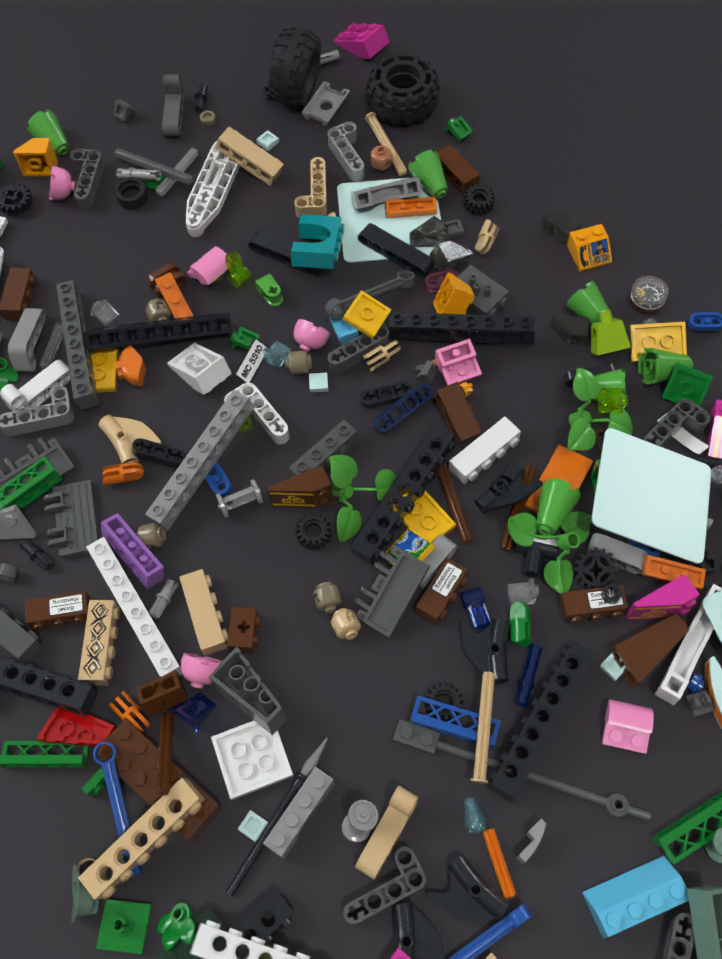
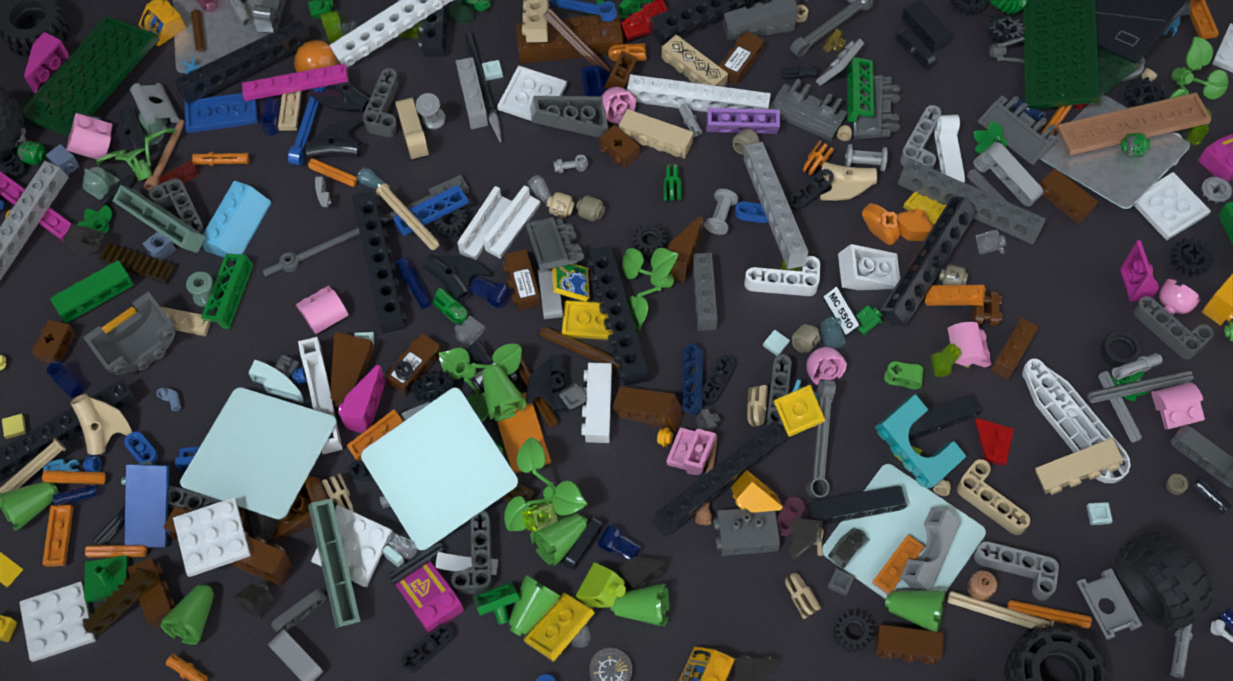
camera: 130 degrees right, 0 degrees up
(59, 208) = (1138, 274): none -> dark pink slope
(76, 474) = (844, 133): none -> tan hinge
(85, 427) = (866, 157): none -> light grey hose
(146, 143) = (1179, 405): none -> bright pink brick
(148, 384) = (882, 223): none -> orange piece
(186, 243) = (1014, 348): none -> reddish brown brick
(243, 558) = (672, 182): none -> green arm
(269, 215) = (994, 440): none -> red wing
(288, 649) = (579, 163): none -> light grey bar
(344, 658) = (539, 188): none -> clear cone
(361, 124) = (1051, 614): none -> orange axle
(398, 649) = (511, 223): none -> white fence
(420, 670) = (472, 242): none -> white fence
(502, 461) = (573, 396): none -> dark grey tile
(568, 358) = (614, 541): none -> clear blue piece

